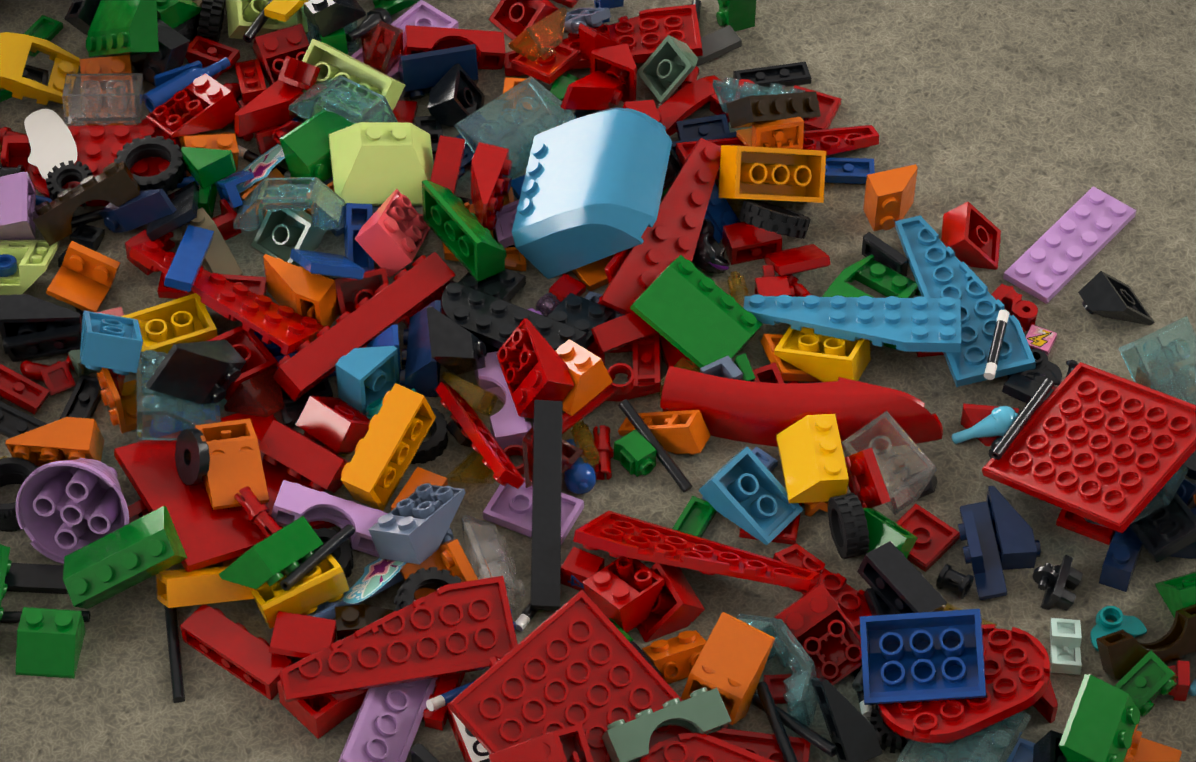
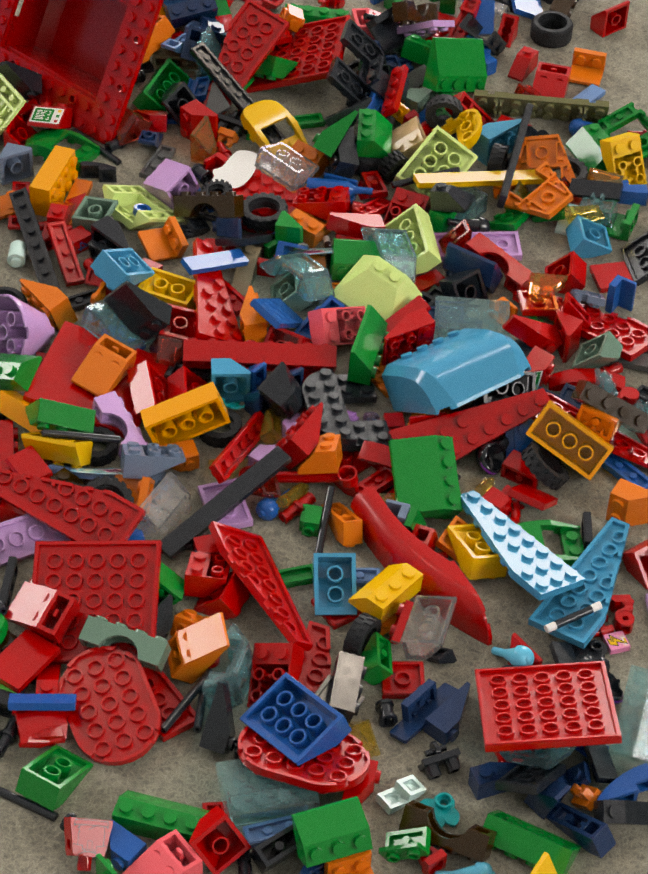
camera: 45 degrees right, 5 degrees down
(191, 456) = (87, 347): black tile -> none
(257, 512) = (87, 395): red pin -> none
(298, 73) = (390, 216): red panel -> none
(1022, 419) = (528, 661): black piece -> none

